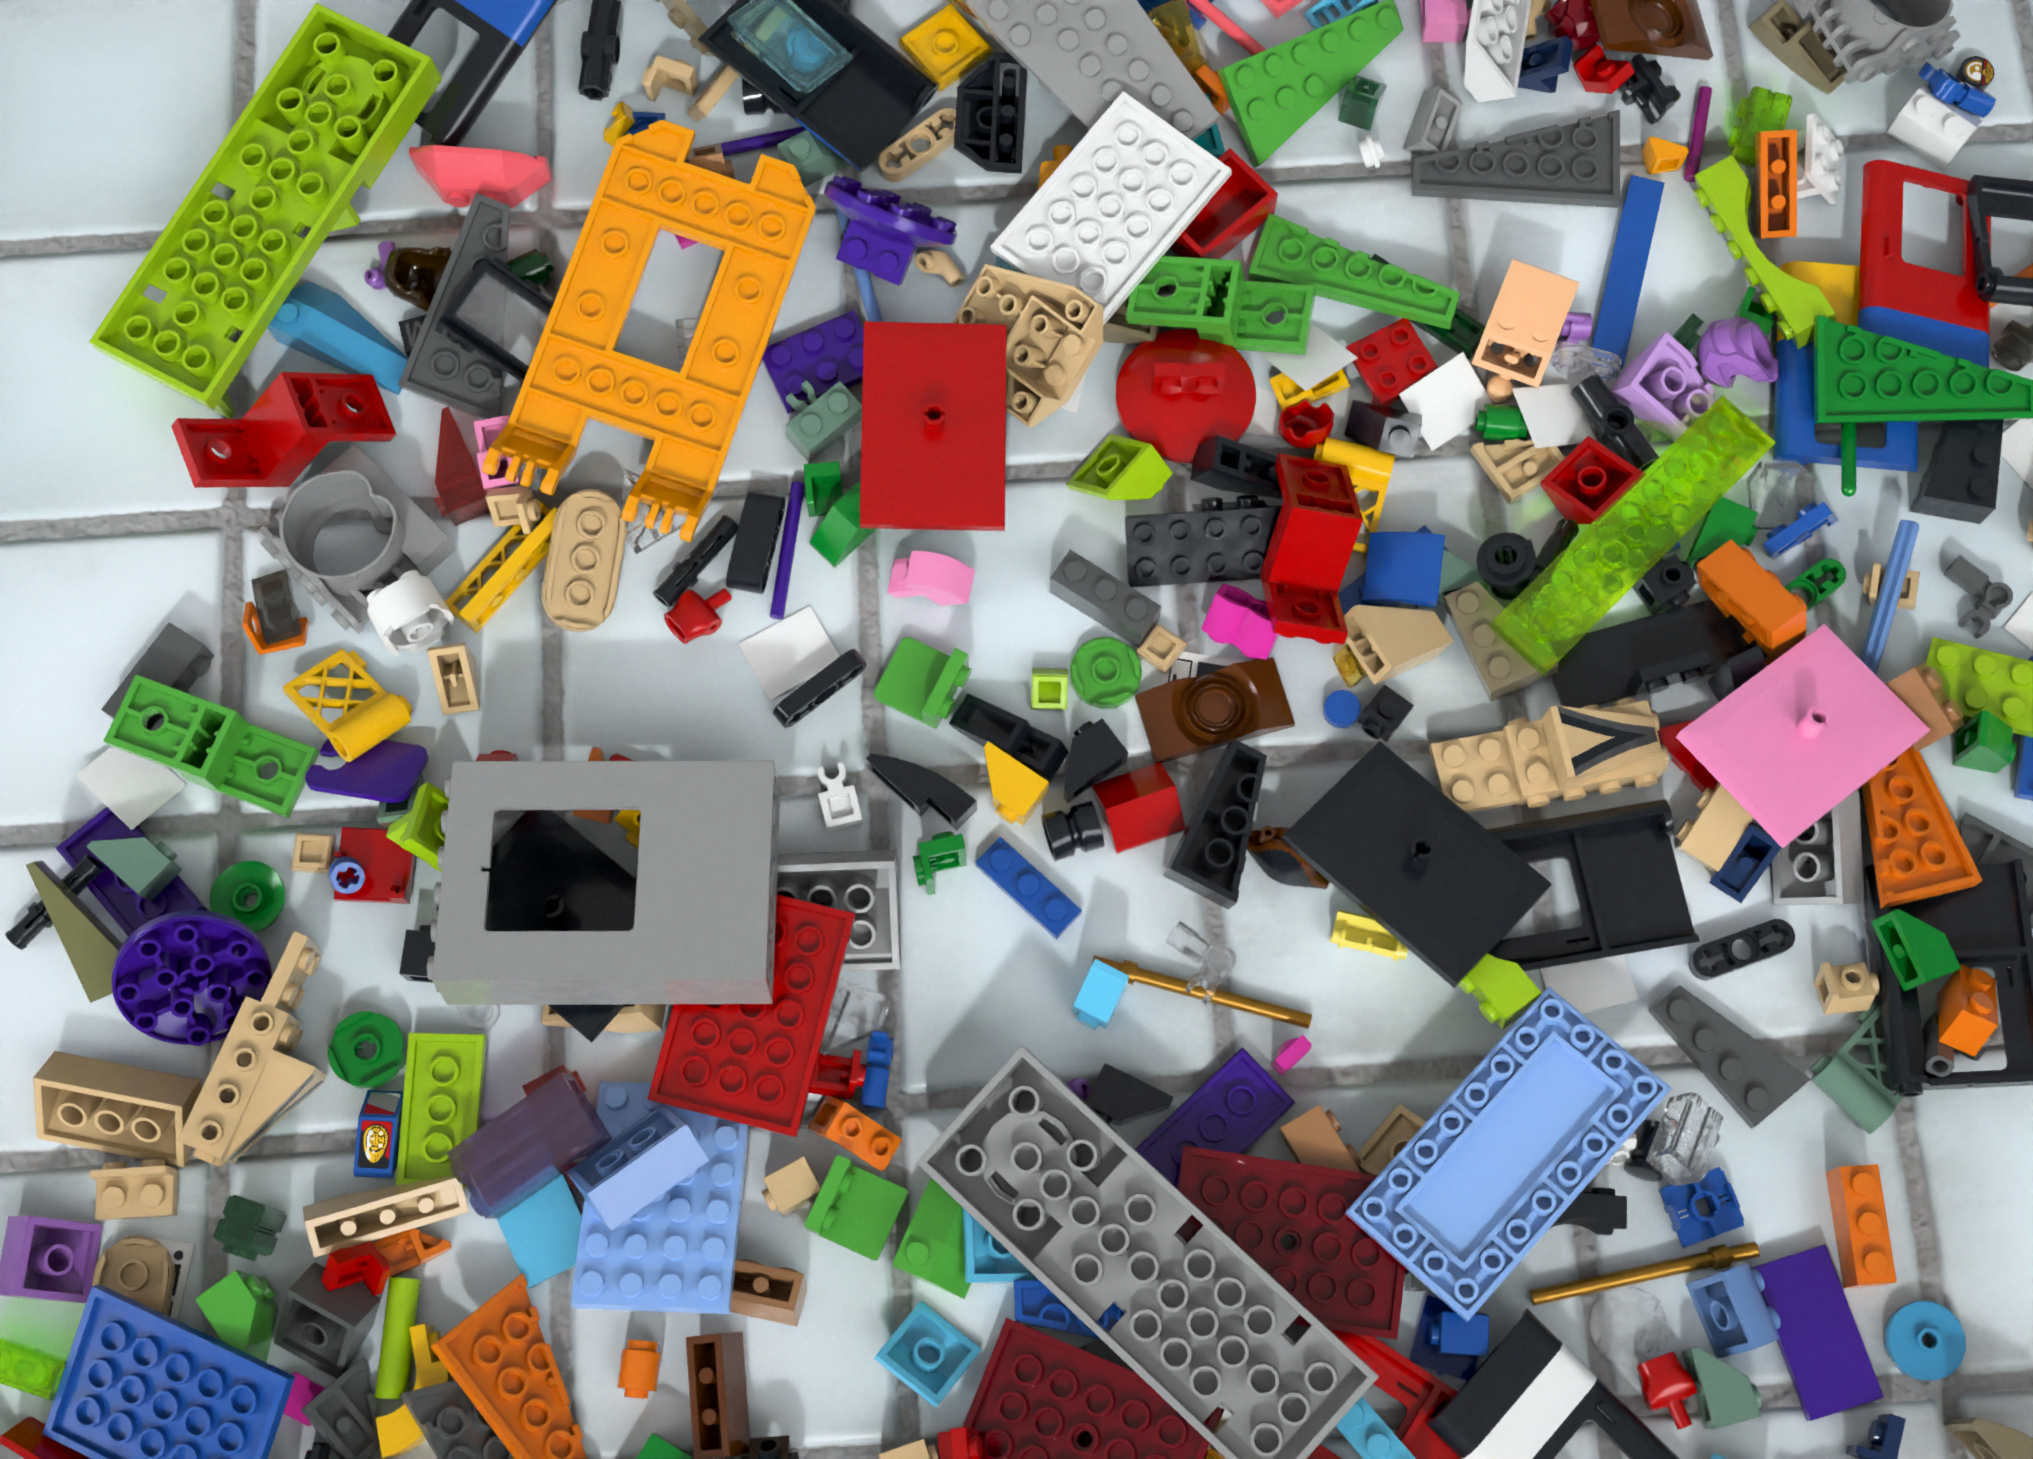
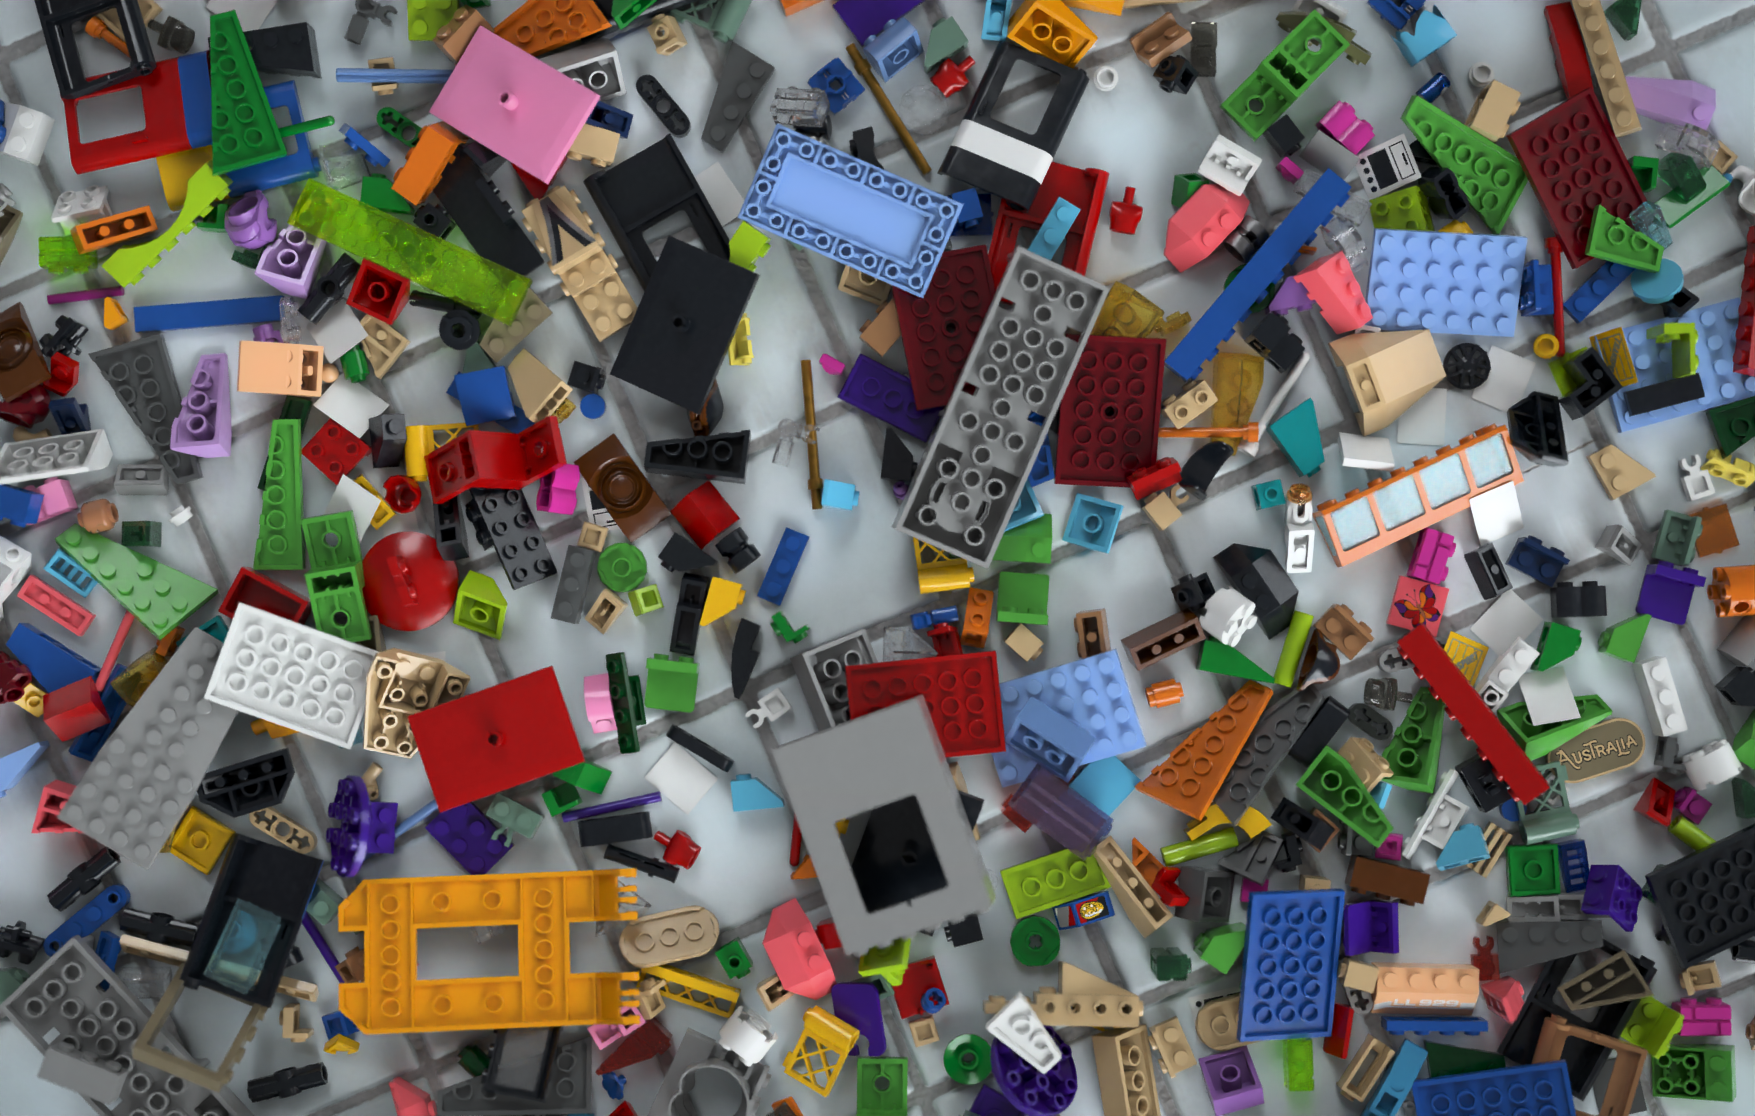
camera: 105 degrees left, 15 degrees up
(240, 975) = (1024, 1033): none -> white wing
(422, 428) = (613, 1085): none -> blue plant
(491, 716) = (797, 952): none -> coral wedge
(519, 635) = (734, 959): none -> green brick
(731, 732) = (753, 794): none -> medium azure slope
(919, 613) = (627, 702): none -> dark green bracket
(934, 1103) = (941, 575): none -> yellow piece
(1055, 631) = (605, 610): none -> tan slope
(1403, 58) = (98, 516): none -> nougat head
(1488, 220) = (205, 417): none -> lavender wedge

